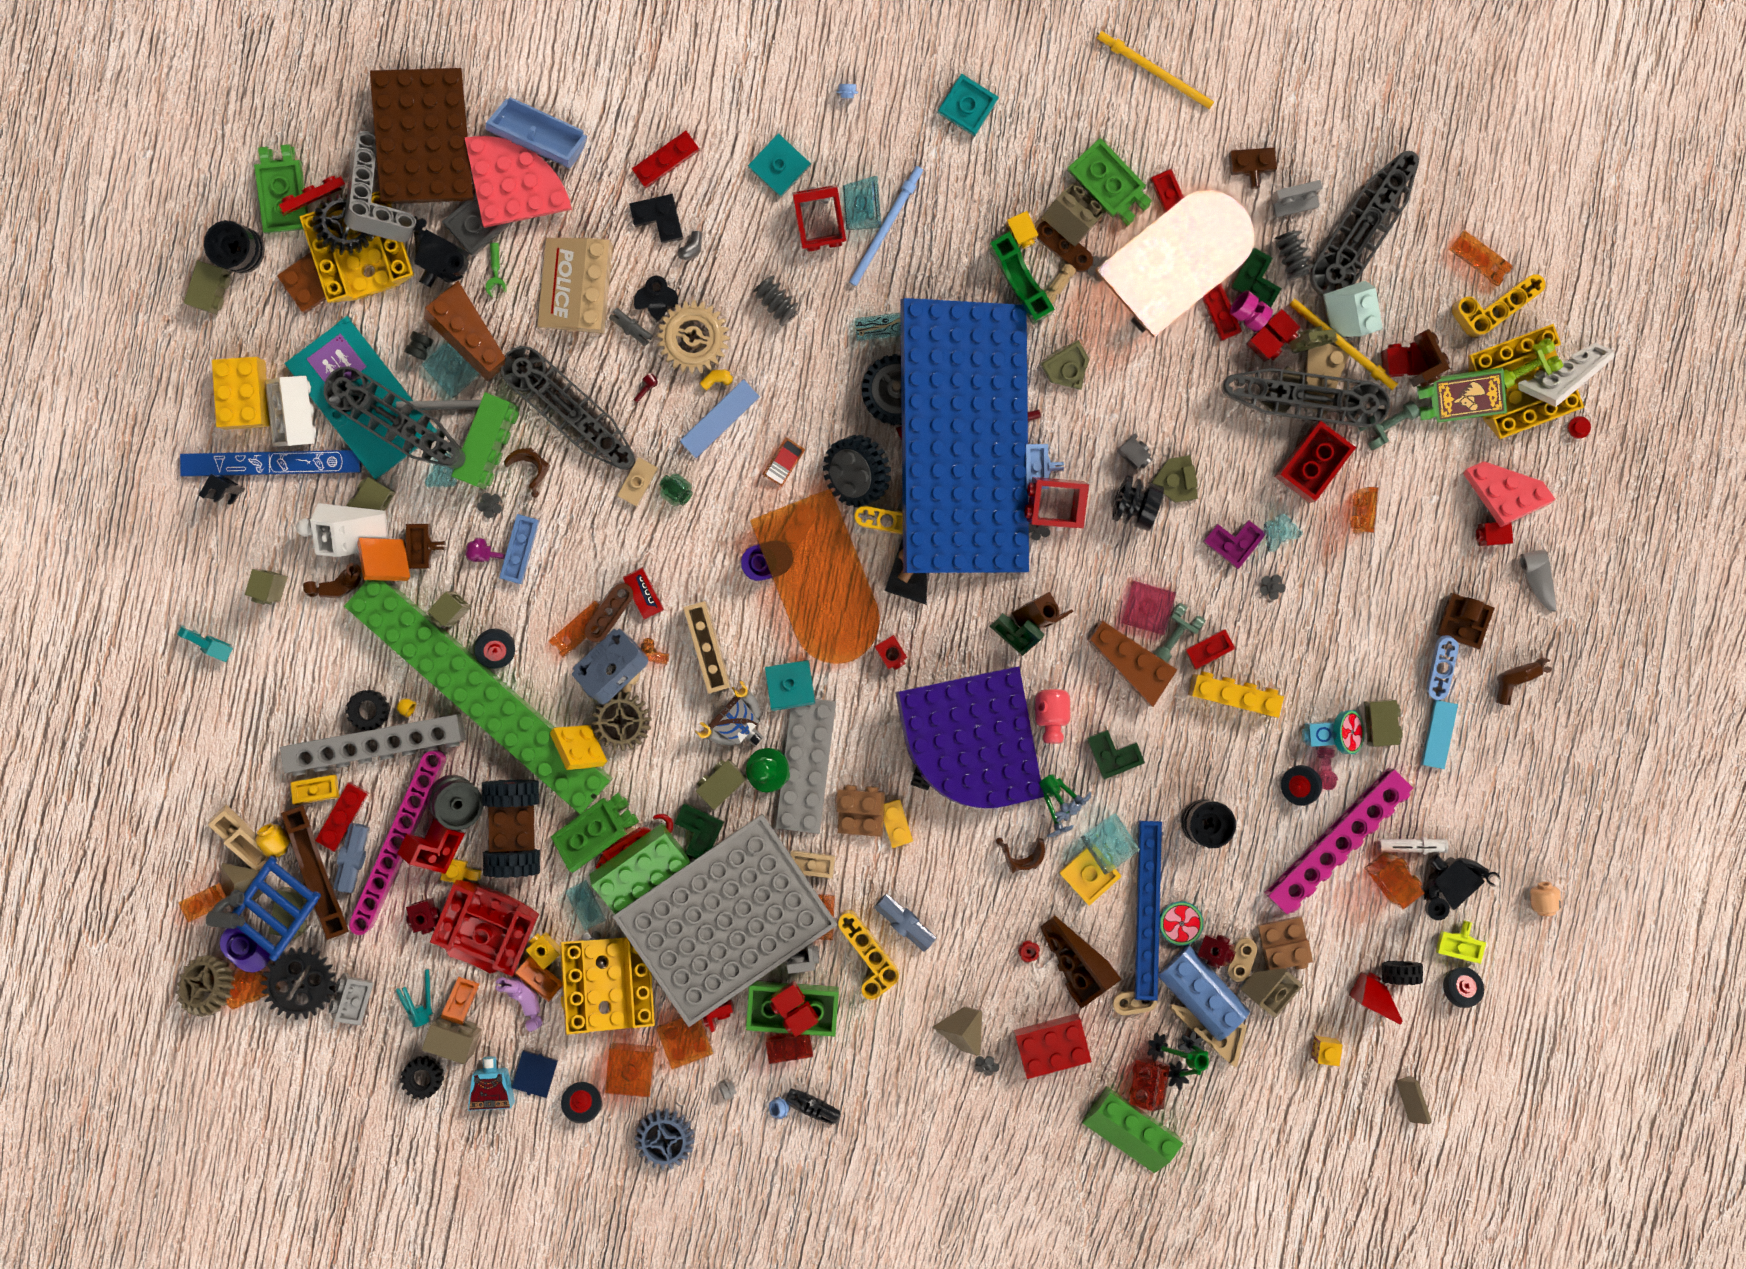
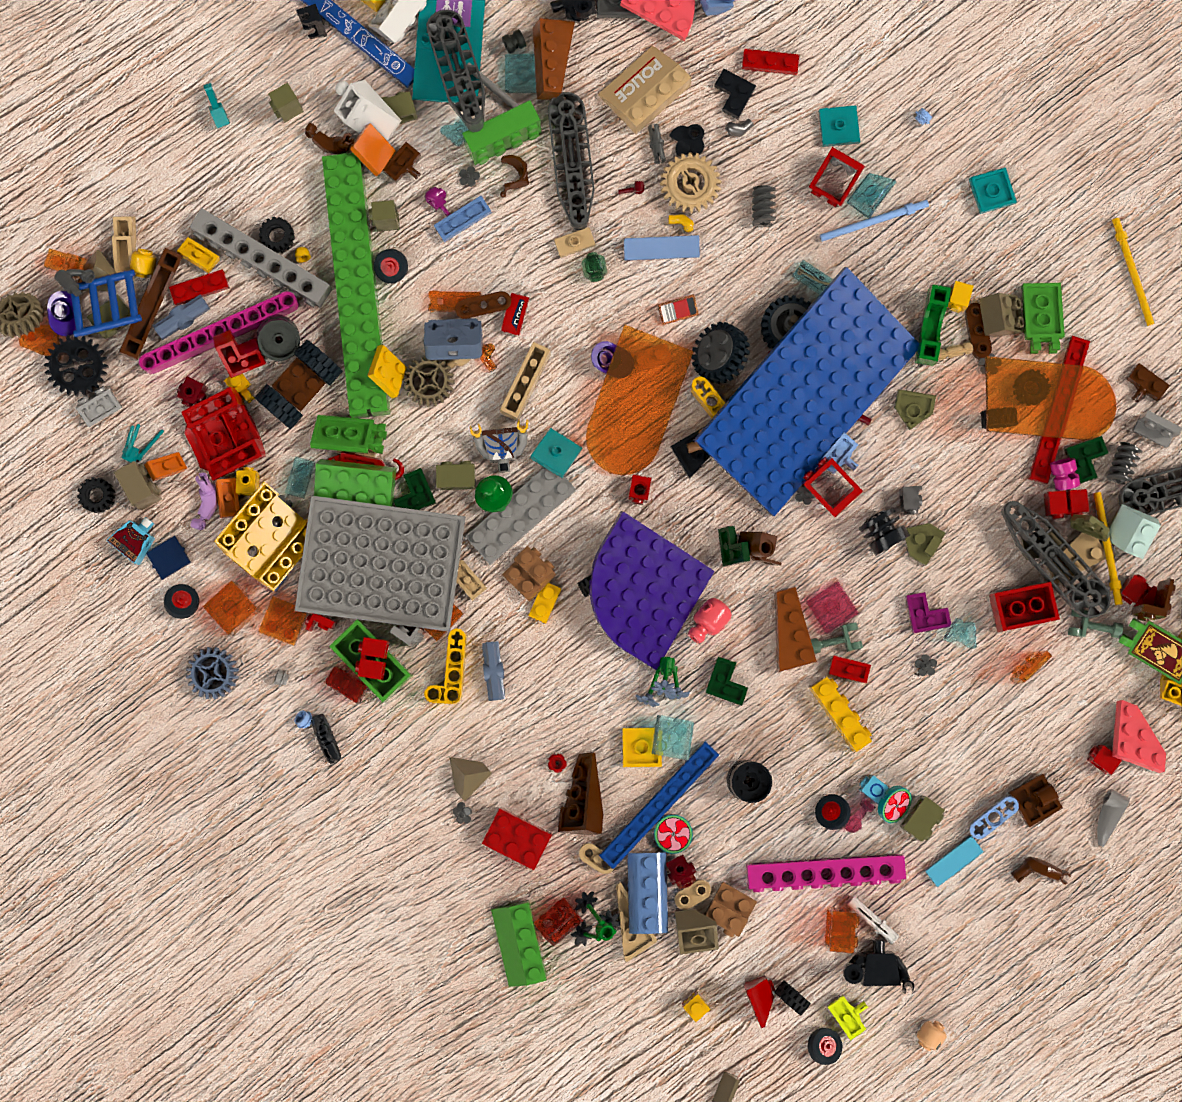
camera: 50 degrees right, 5 degrees down
(495, 266) = (605, 35): bright green piece -> none
(1028, 863) = (610, 706): reddish brown helmet -> none

